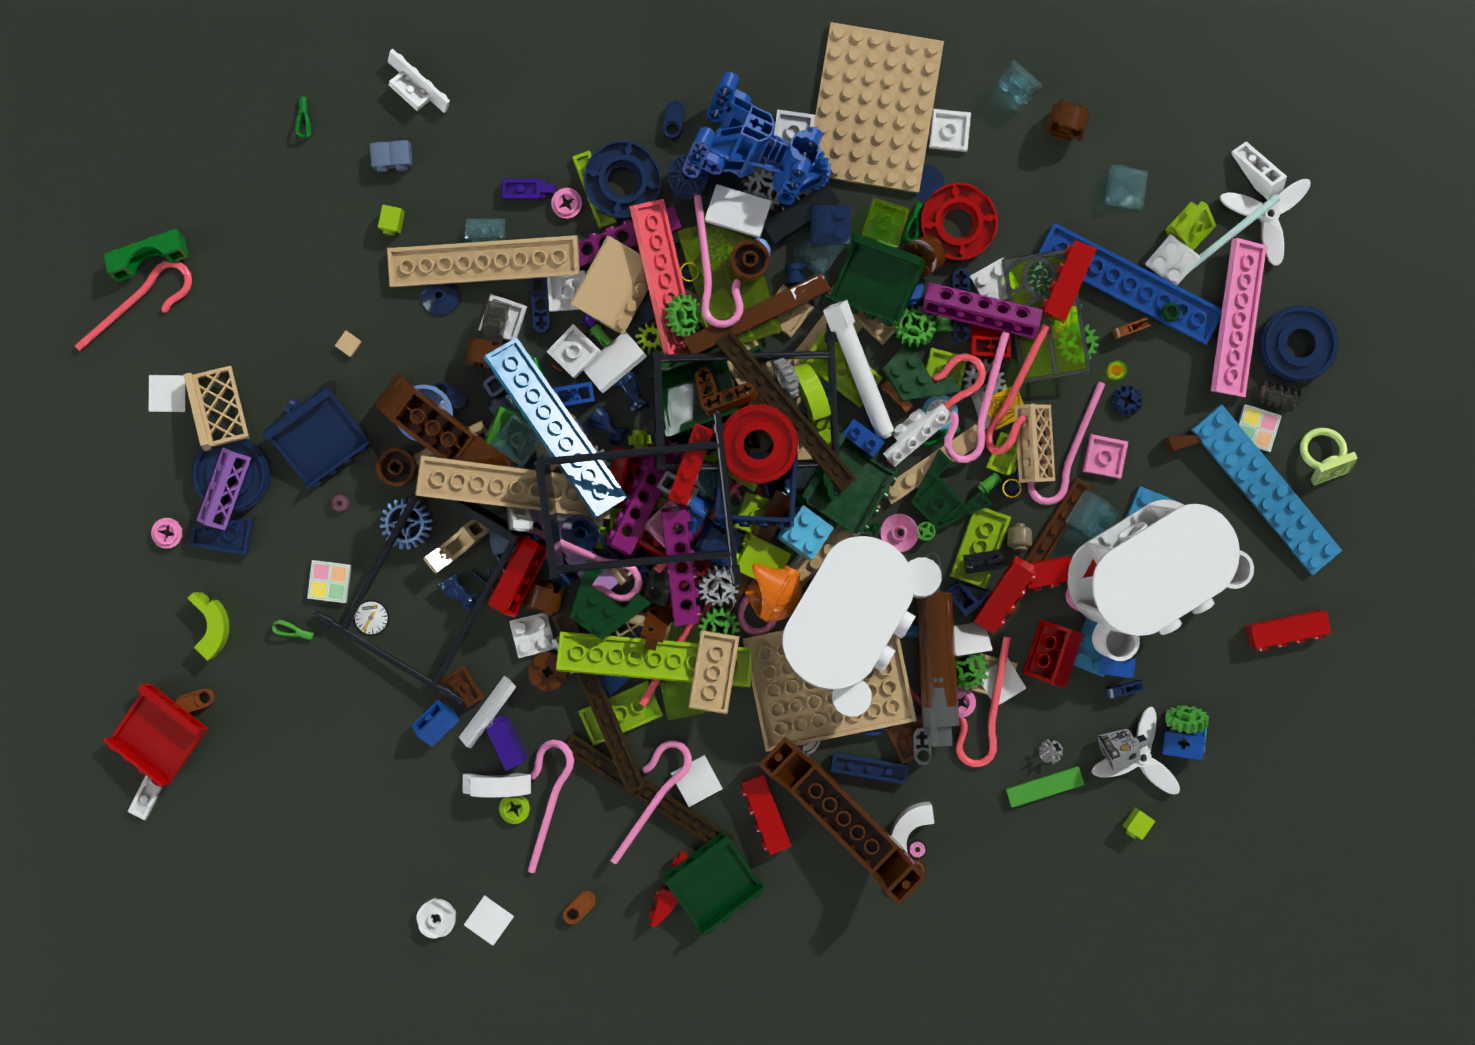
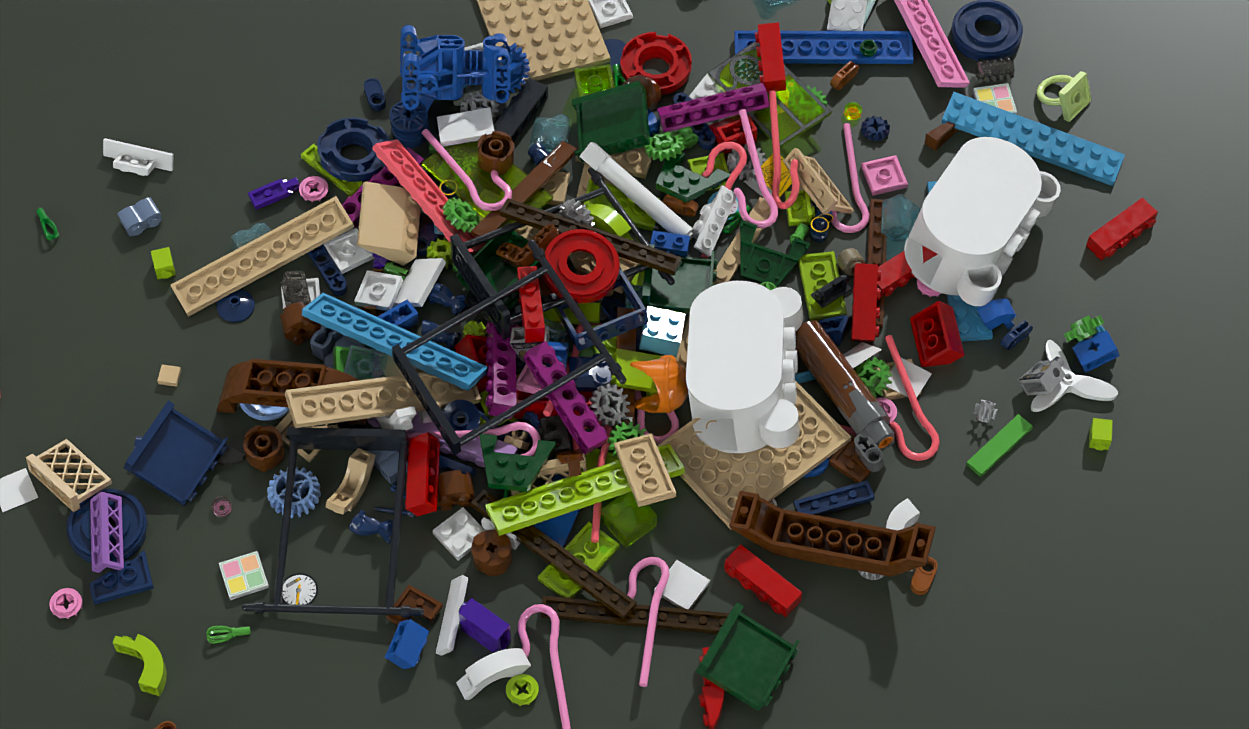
camera: 25 degrees left, 30 degrees down
(830, 224) = (550, 102): dark blue slope -> none

